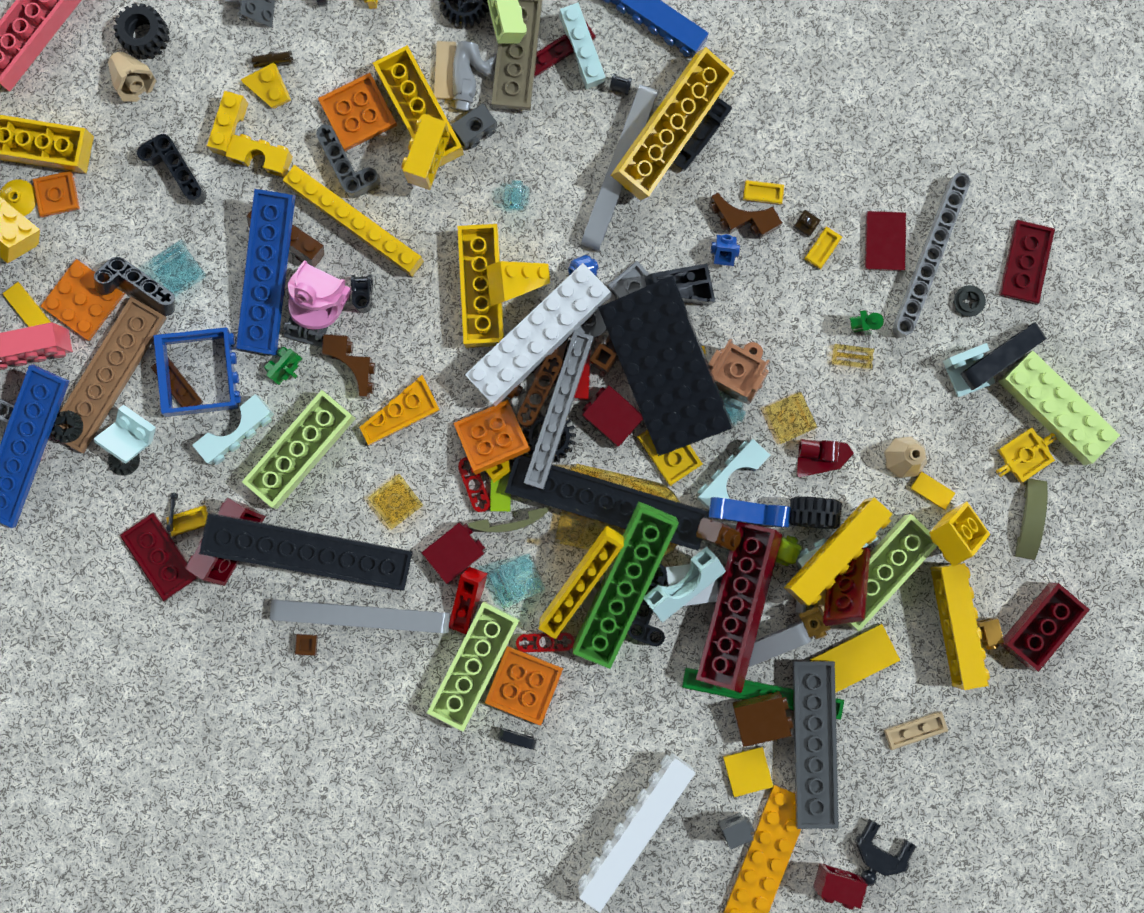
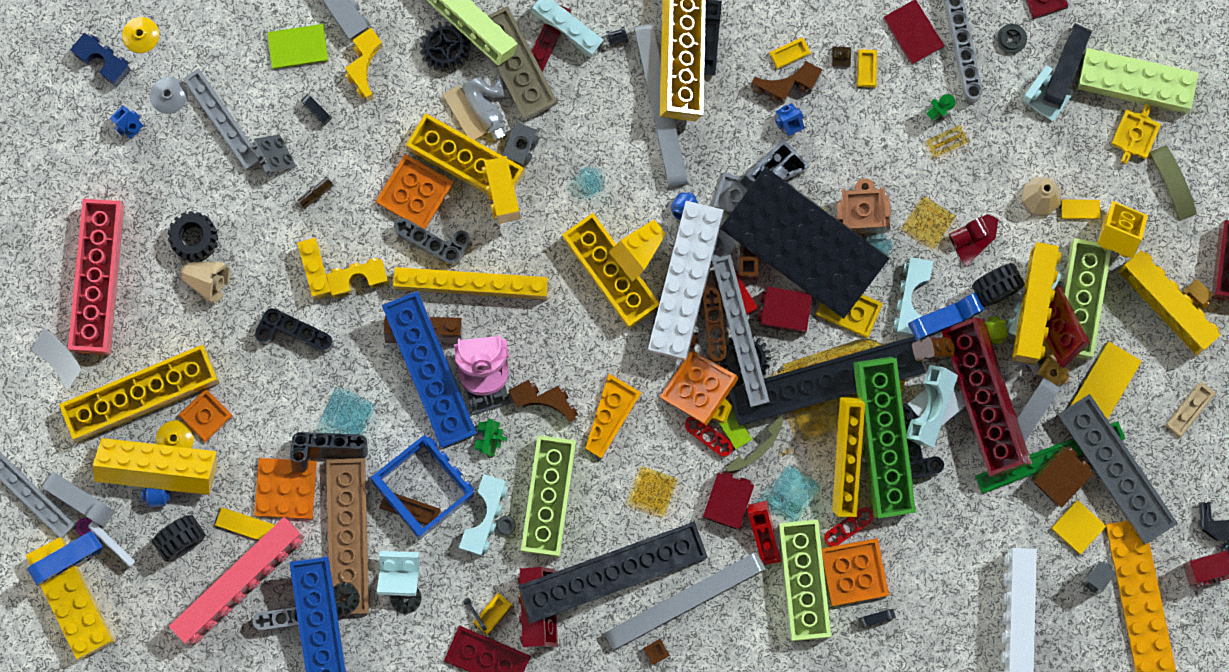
camera: 30 degrees left, 5 degrees down
(249, 451) = (506, 525): none -> dark grey tile
(268, 86) = (326, 216): yellow wing -> none
(362, 289) = (514, 334): black piece -> none

